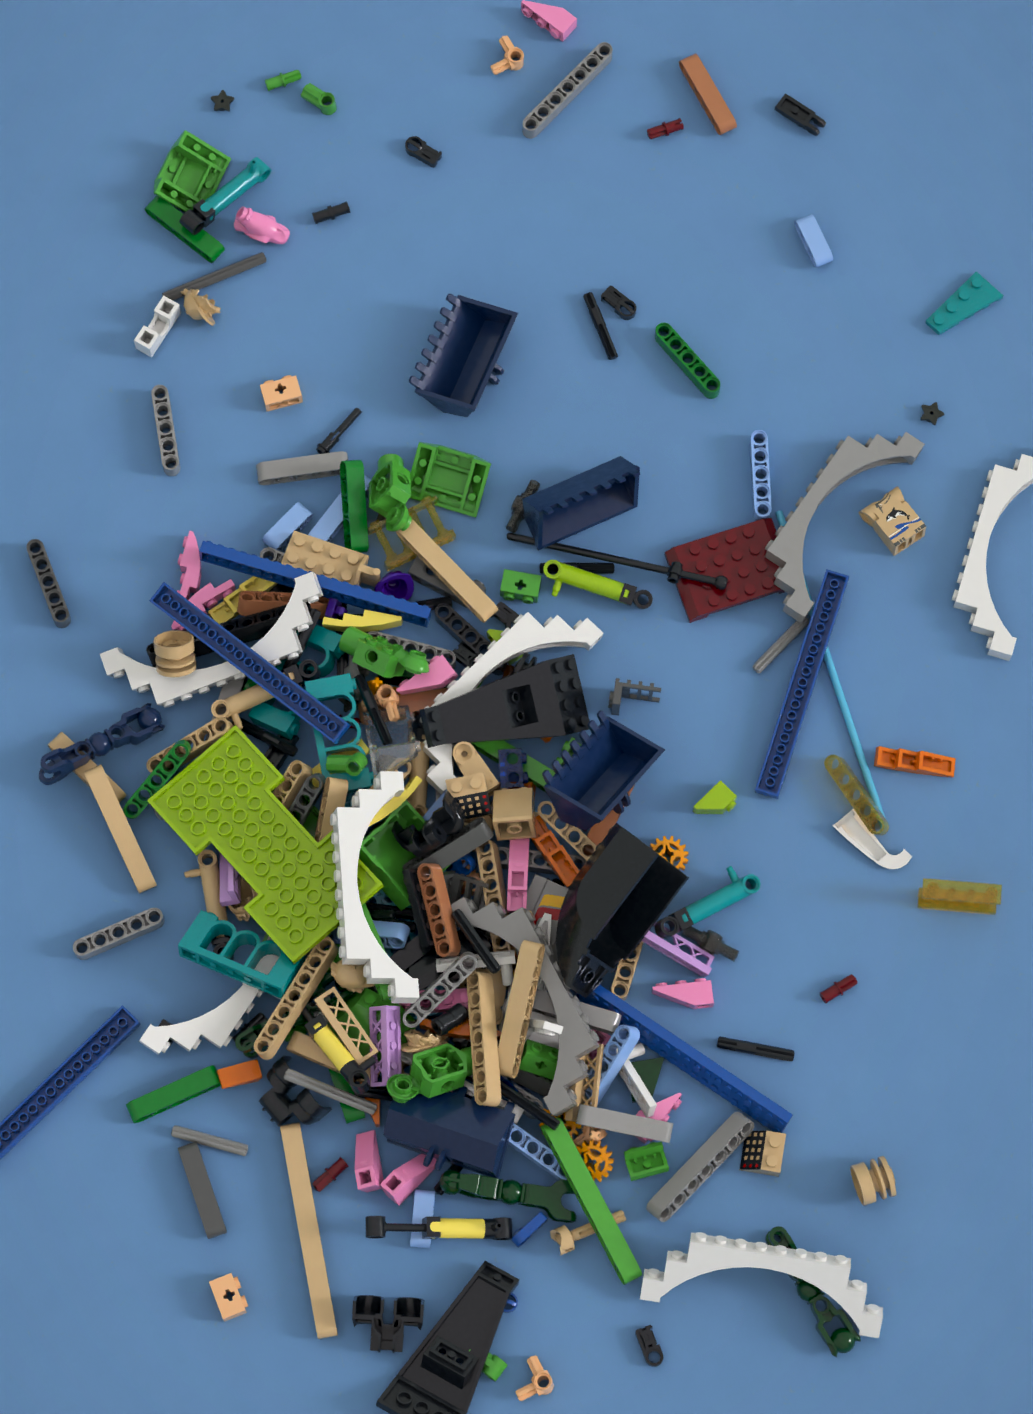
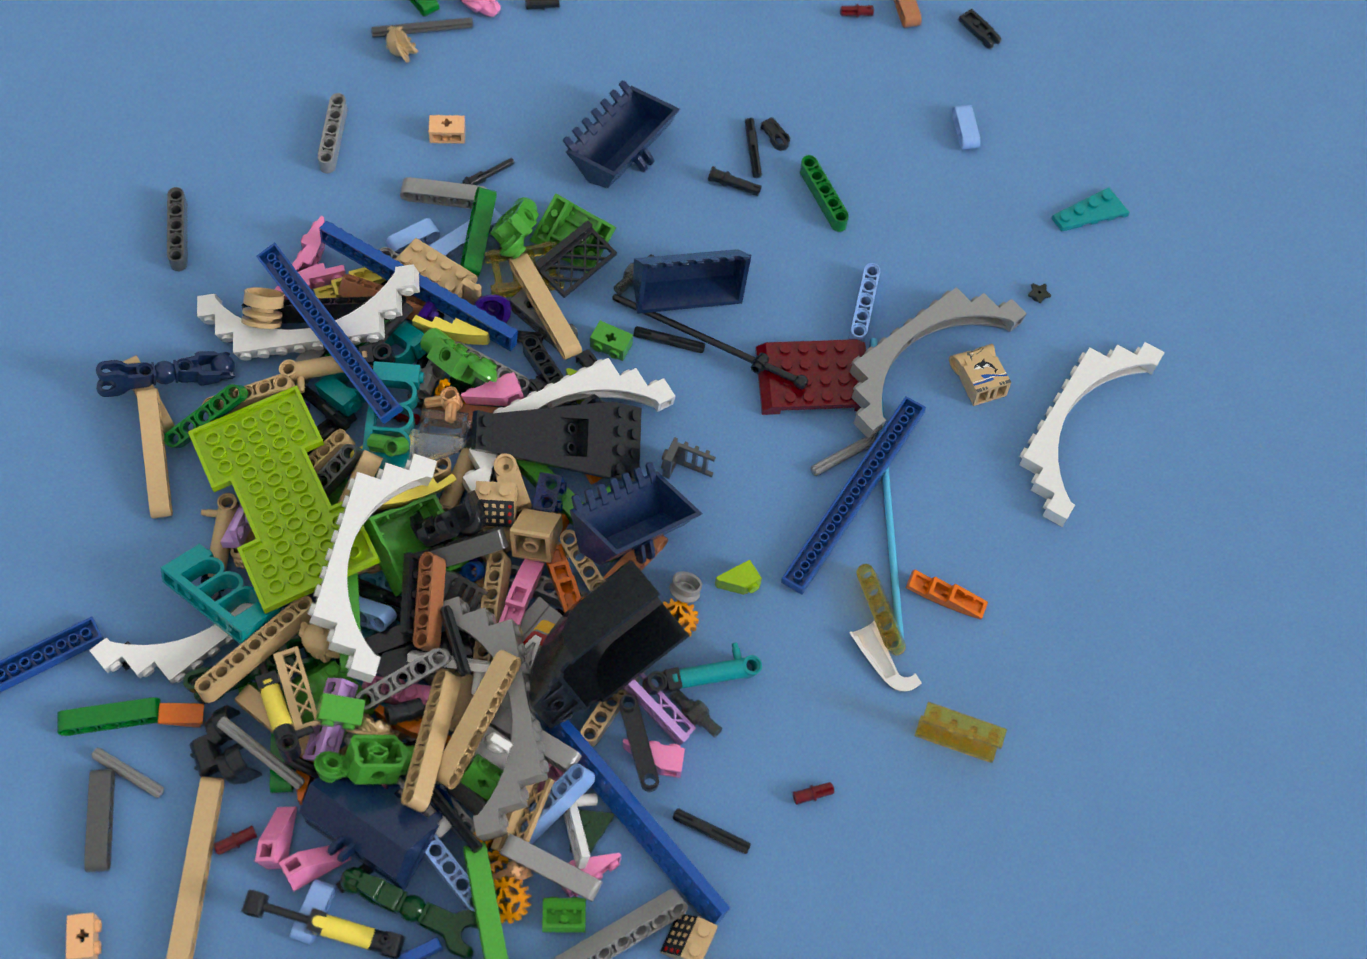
camera: 10 degrees right, 10 degrees down
(108, 933) = (107, 545): light grey beam -> none
(164, 318) = (367, 43): white arch -> none
(373, 709) = (432, 402): black axle -> none
(395, 1036) = (340, 711): none -> bright green brick
(449, 498) = (562, 251): none -> black fence
(583, 371) = (726, 178): none -> black pin
(596, 584) = (706, 369): lime piece -> none
(667, 823) = (685, 587): none -> light grey piece
(668, 987) = (639, 743): none -> black piece

